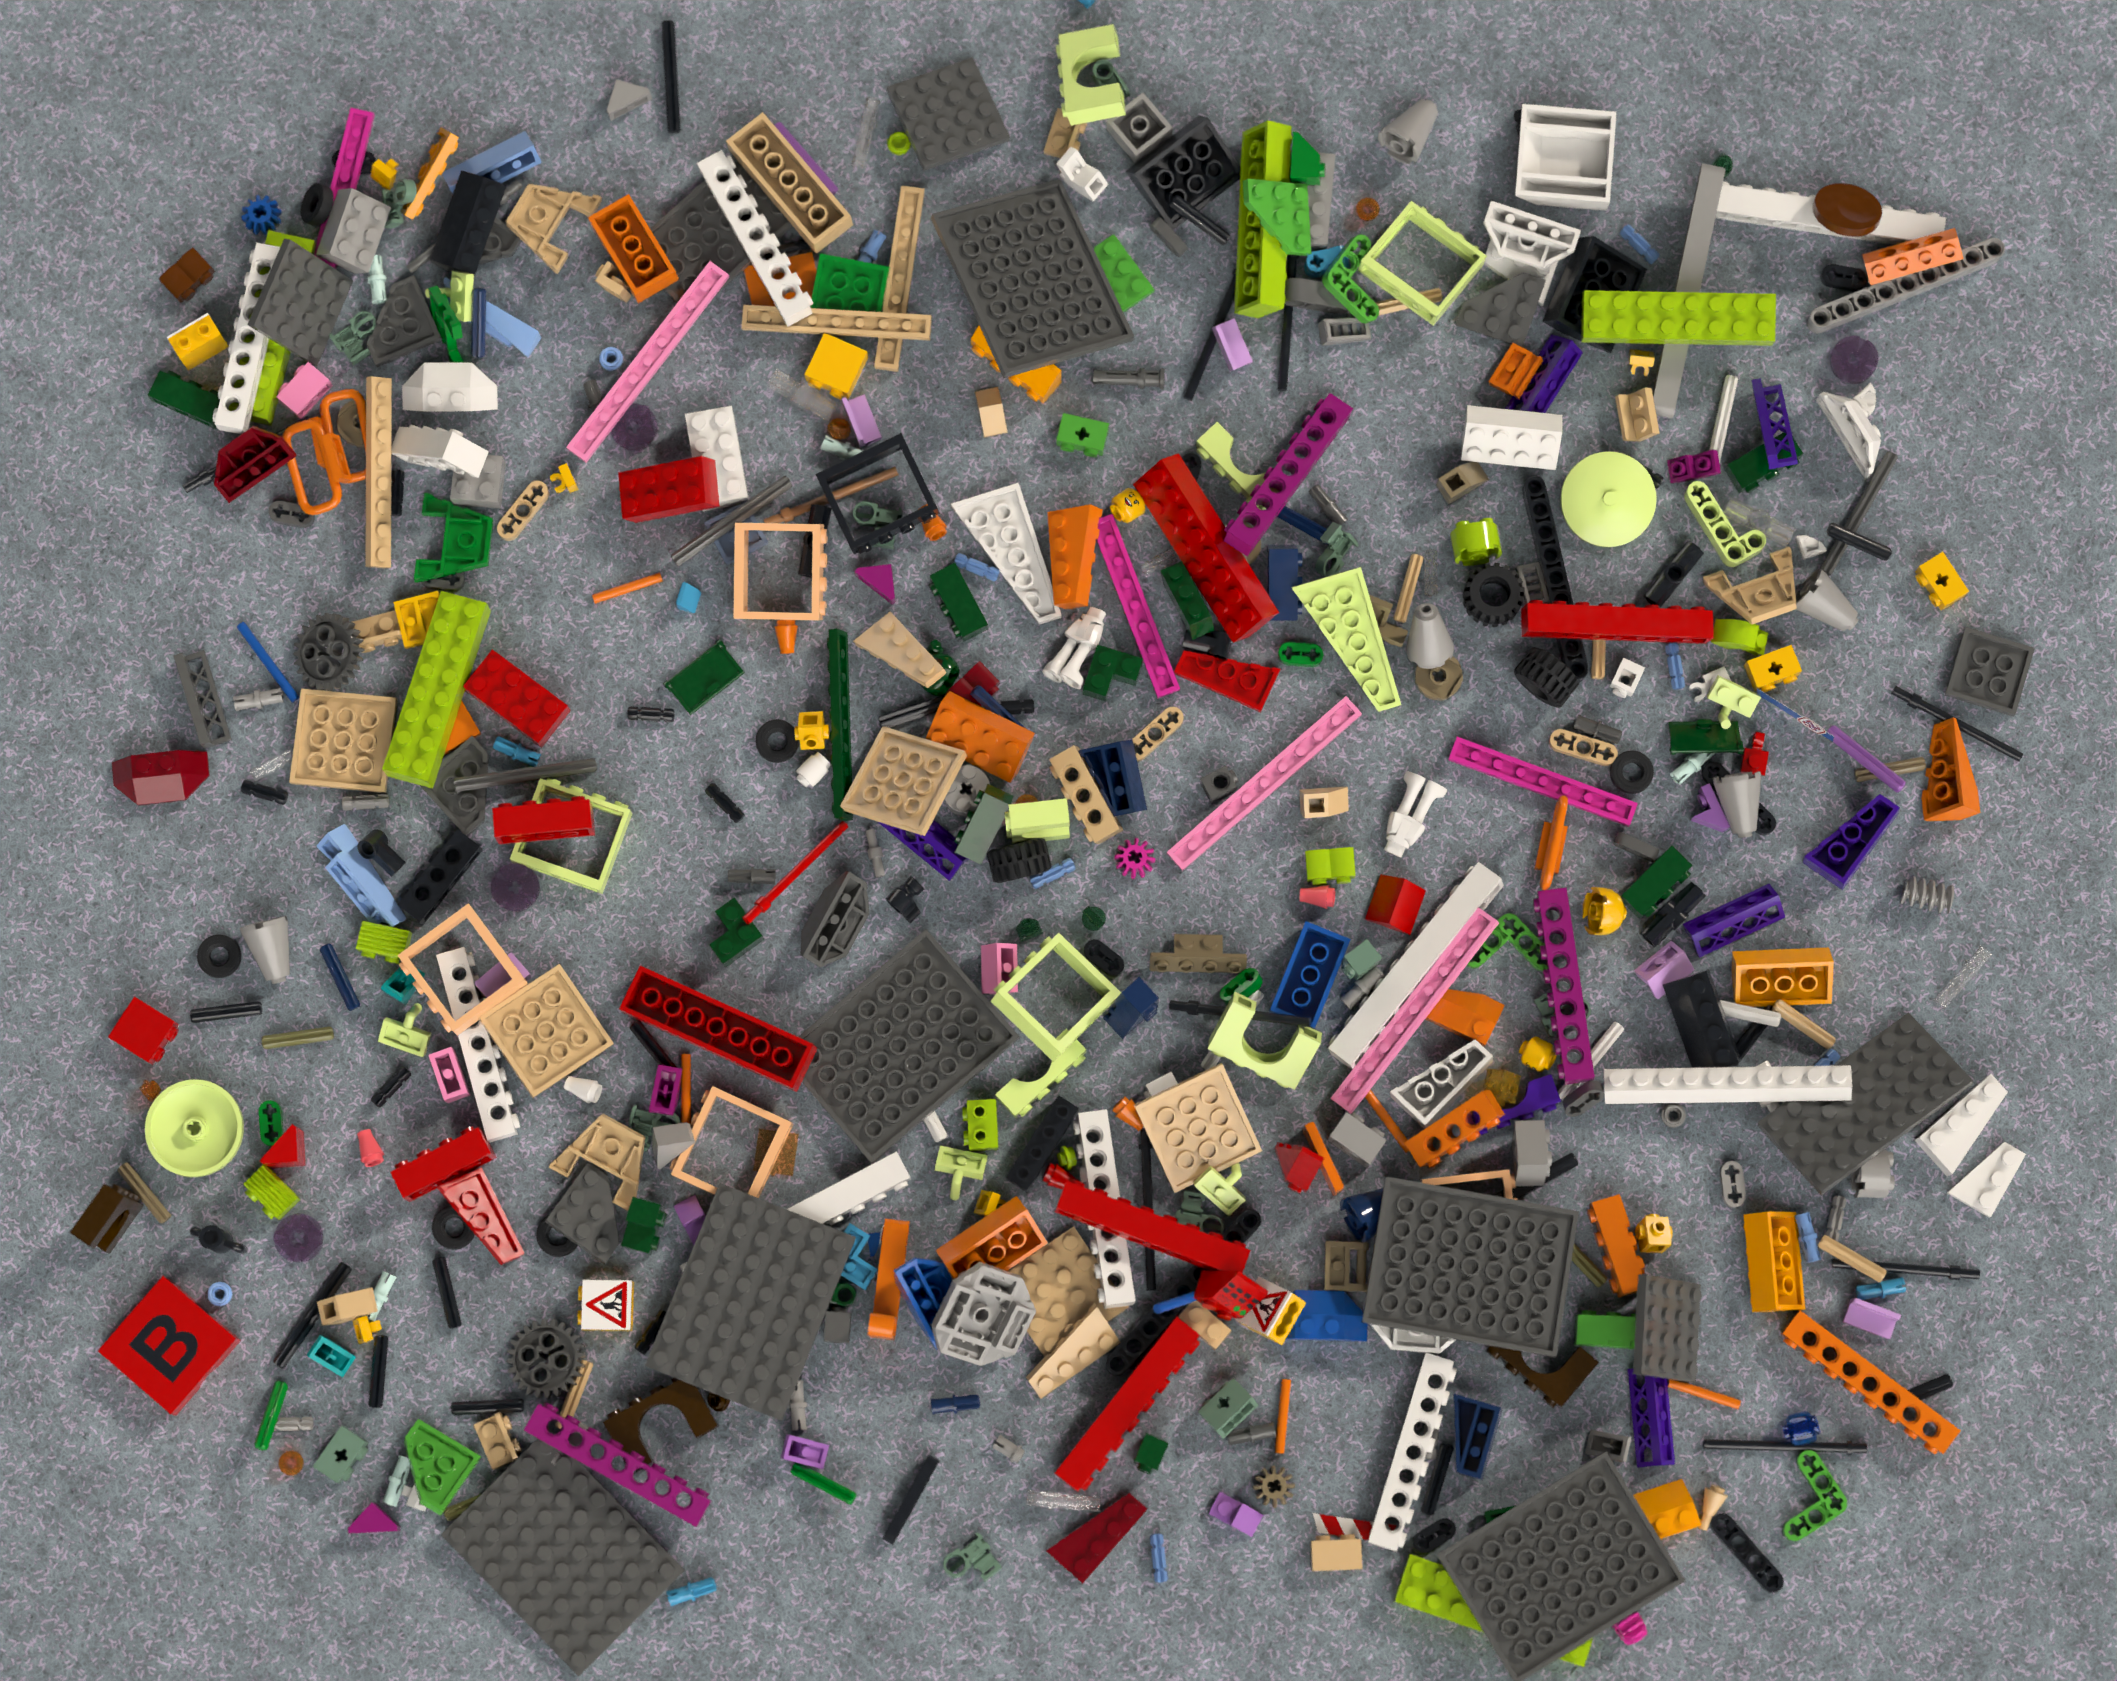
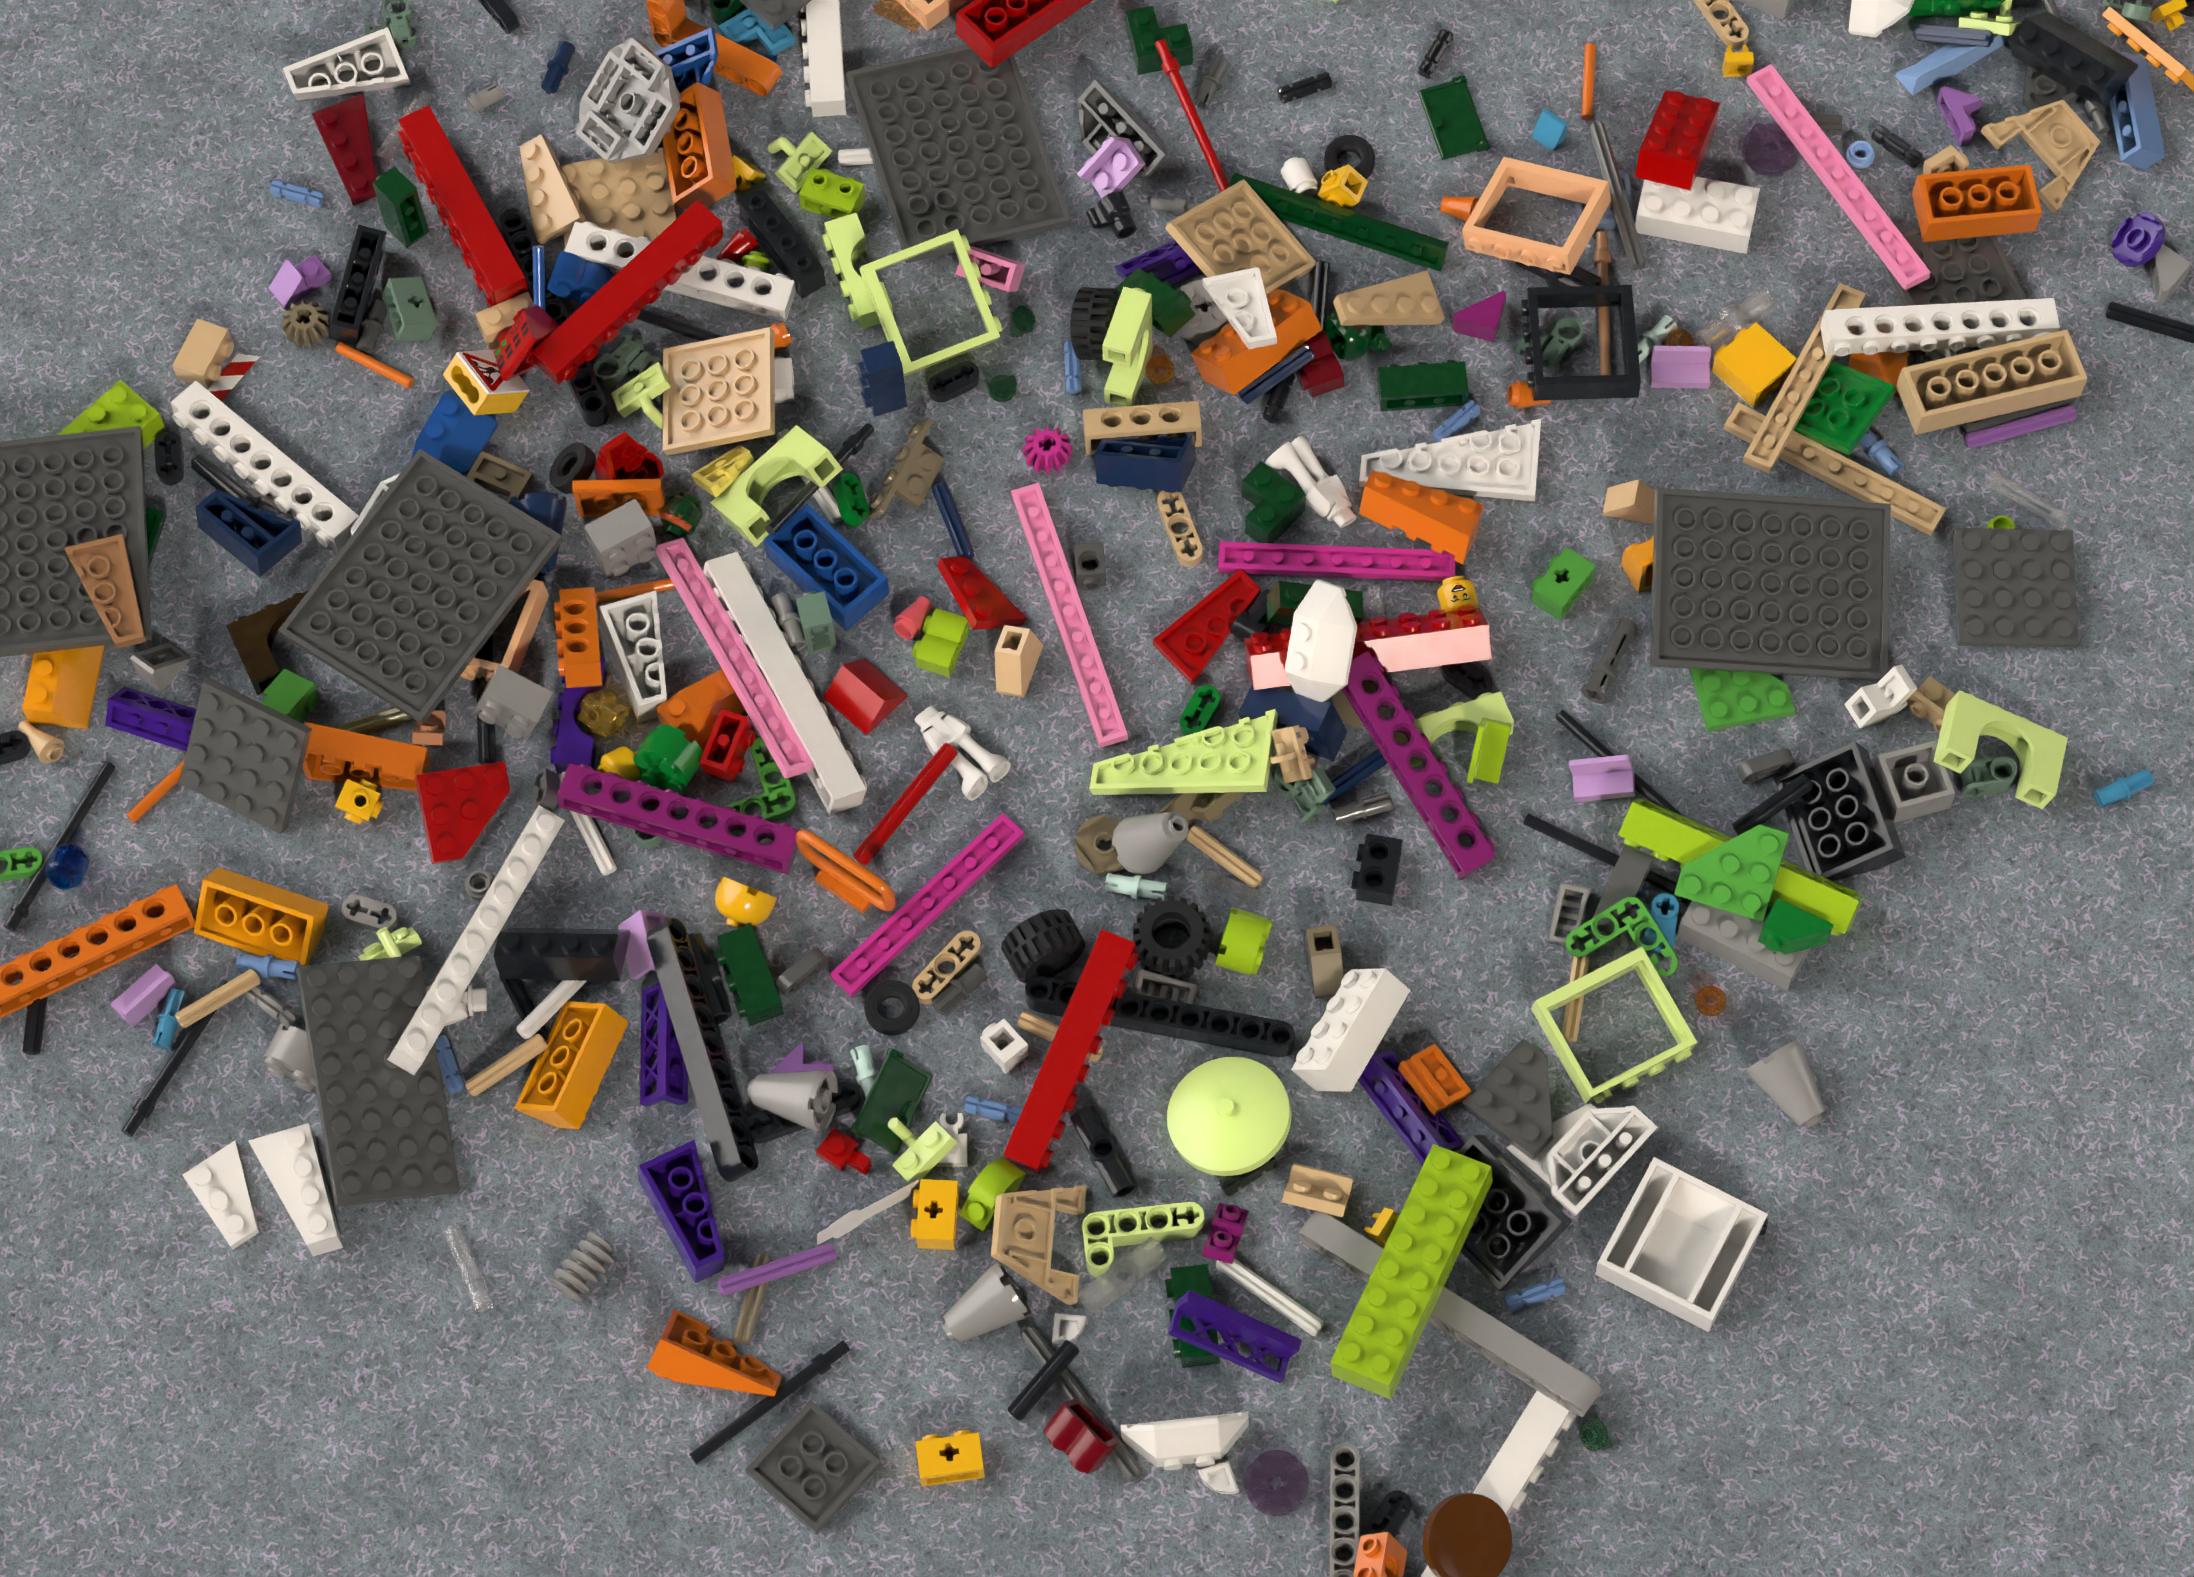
camera: 115 degrees right, 15 degrees down
(542, 301) = (1958, 112): none -> medium lavender slope
(591, 334) = (1897, 146): none -> black axle
(609, 126) = (2138, 239): none -> dark purple tile
(870, 912) = (1112, 166): none -> lavender bracket
(969, 744) = (1244, 305): none -> white wing
(1034, 1569) = (349, 68): none -> white wedge
(1150, 1280) = (576, 278): none -> blue brick
(1223, 904) = (952, 520): none -> dark blue axle
(1226, 1459) = (357, 285): none -> black brick
(1237, 561) = (1321, 642): none -> white wedge
(1247, 431) = (1489, 751): none -> lime panel
(1262, 1094) = (723, 471): none -> light yellow wing
(1281, 855) = (977, 596): none -> red wing
(1310, 1108) = (681, 515): none -> dark green head
(1310, 1197) = (565, 460): none -> black tyre
(1322, 560) = (1292, 754): none -> tan hips
(1370, 468) = (1382, 870): none -> black brick
(1461, 639) = (1136, 886): none -> light aqua pin
(1474, 831) = (905, 804): none -> red axle
(1488, 980) = (727, 746): none -> red brick
(1521, 1017) = (668, 758): none -> green brick
(1578, 1203) = (432, 731): none -> nougat bracket
(1581, 1502) = (109, 582): none -> medium nougat wing
(1622, 1158) = (459, 806): none -> red plate
(1732, 885) = (702, 1050): none -> black beam
(1756, 1152) = (391, 944): none -> yellowish green plate
(1886, 499) = (1080, 1436): none -> dark red brick

